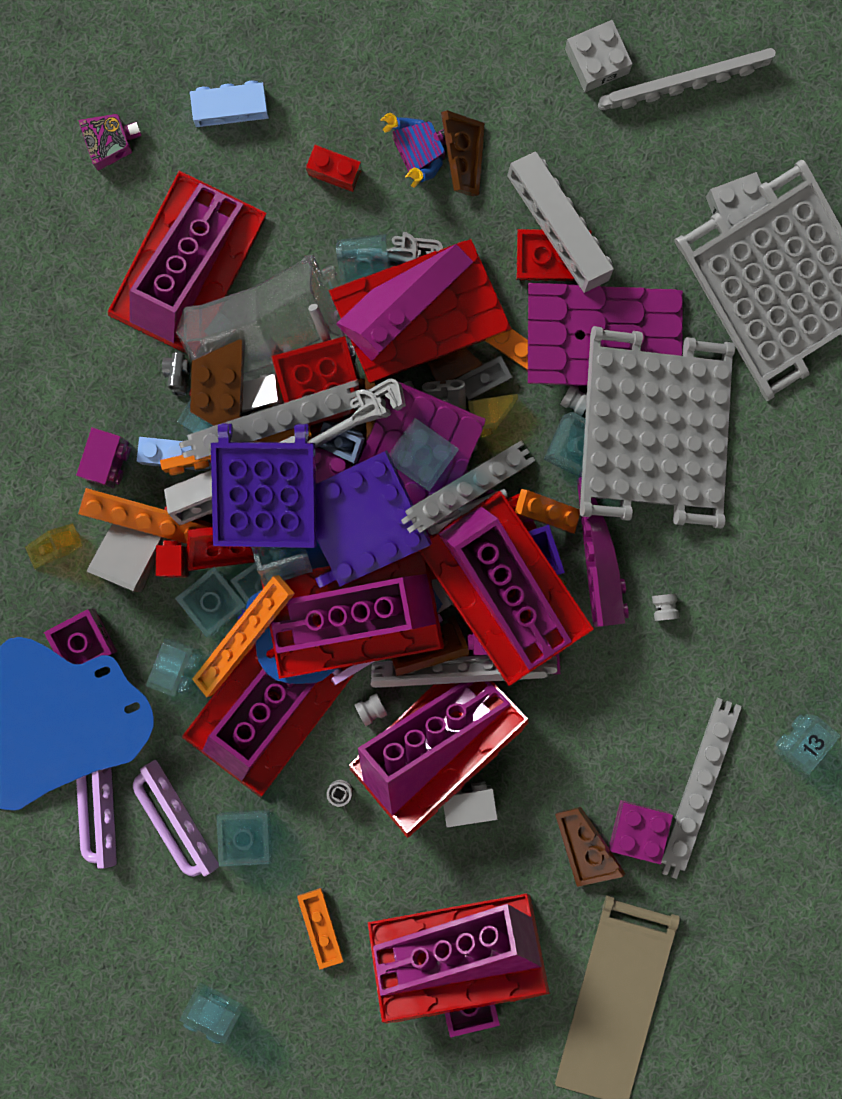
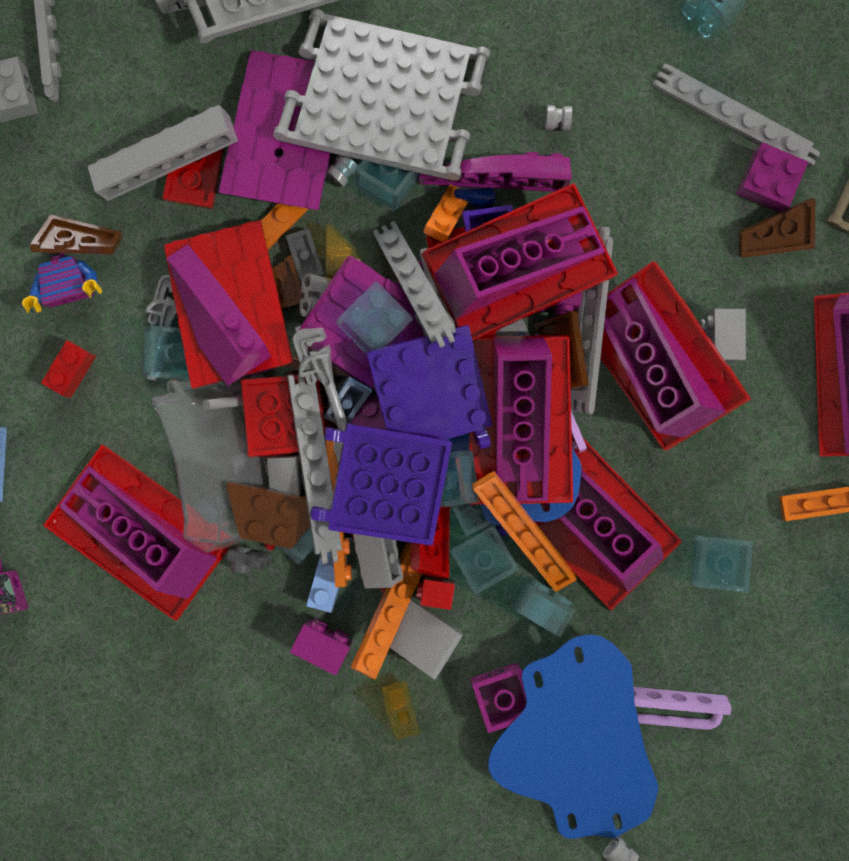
camera: 85 degrees left, 0 degrees up
(205, 861) = (737, 607): lavender piece -> none
(342, 790) = (686, 466): light grey wheel -> none
(371, 709) = (613, 419): light grey wheel -> none
(570, 543) = (480, 197): none -> clear blue cone

